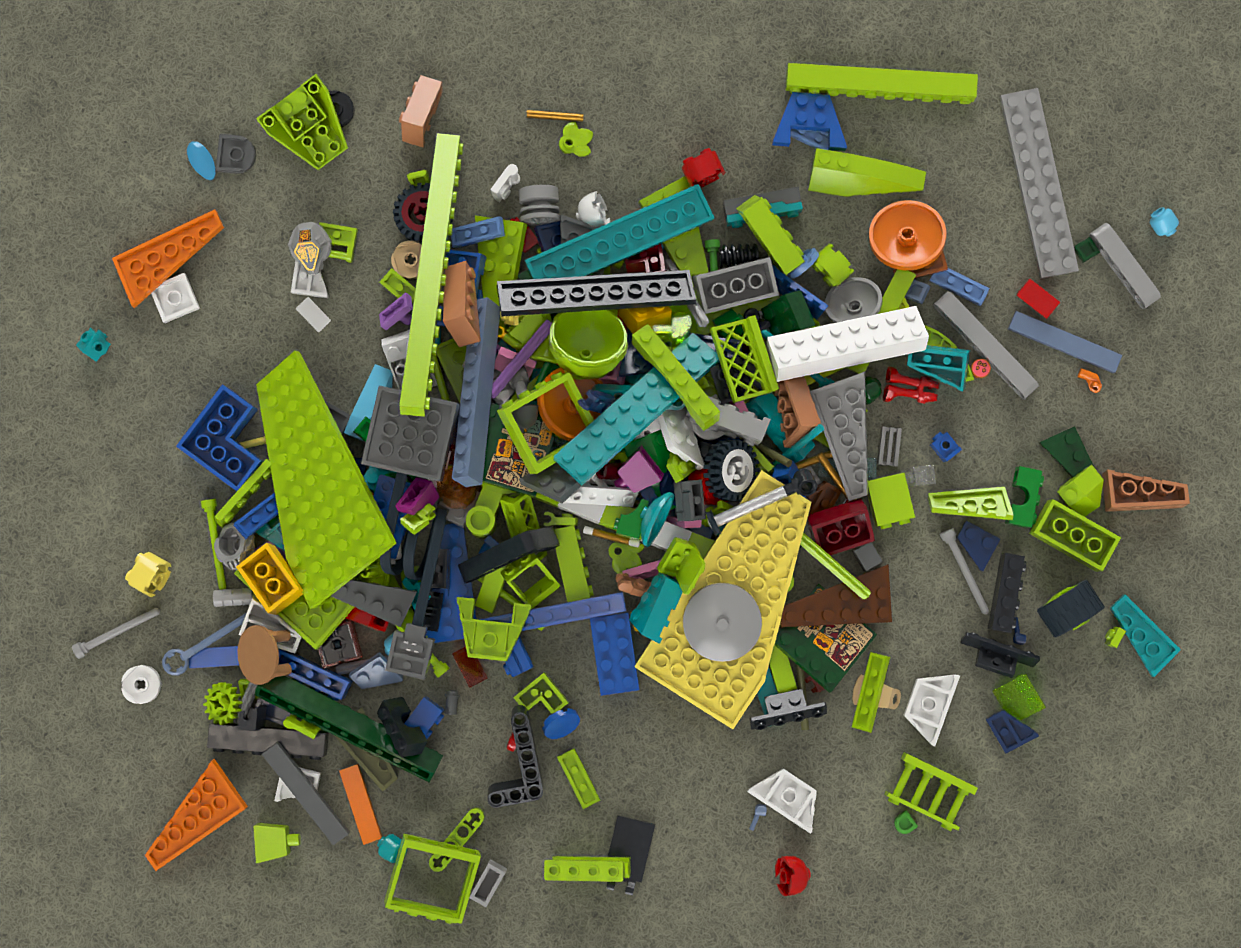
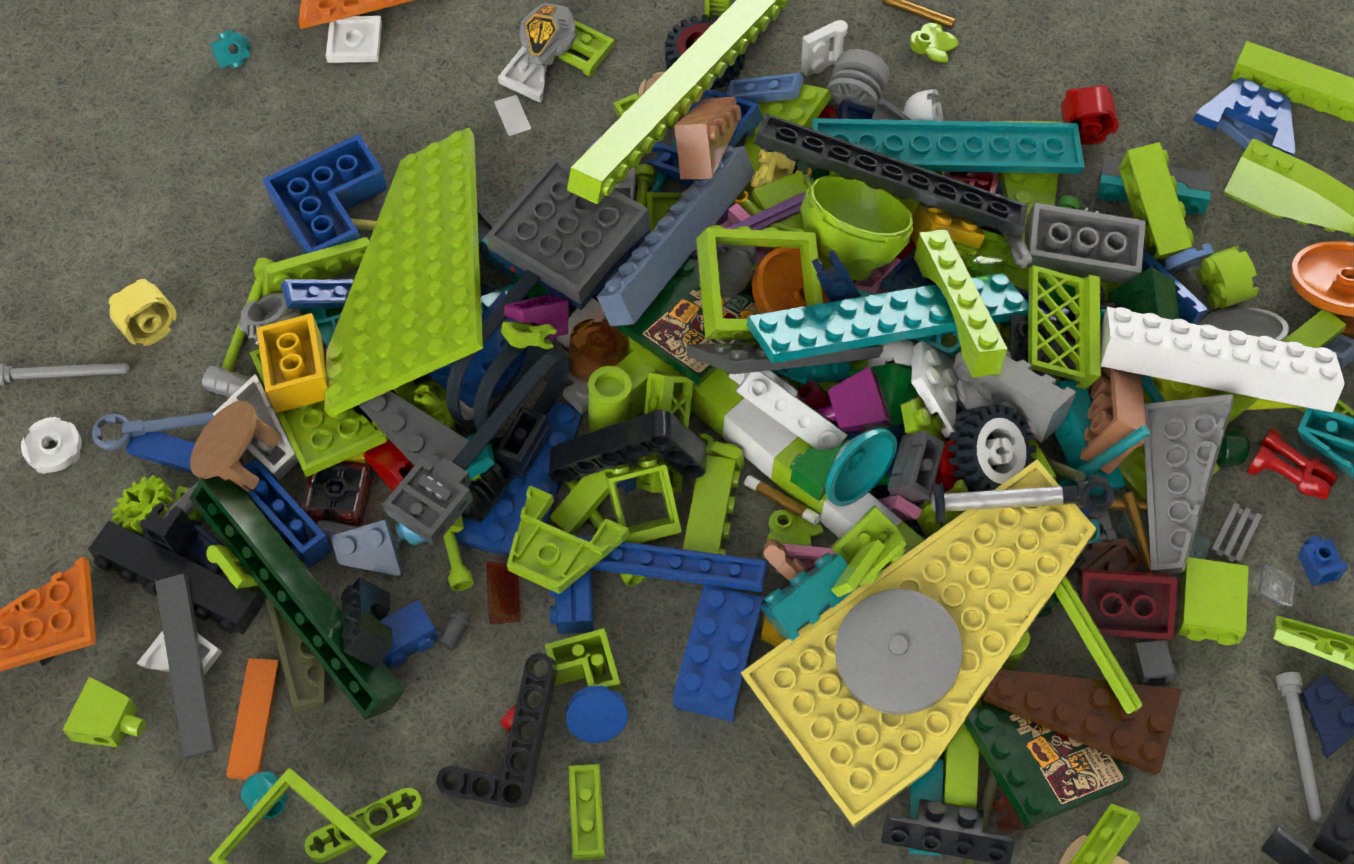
camera: 20 degrees right, 25 degrees down
(680, 583) = (858, 568): none -> lime tile

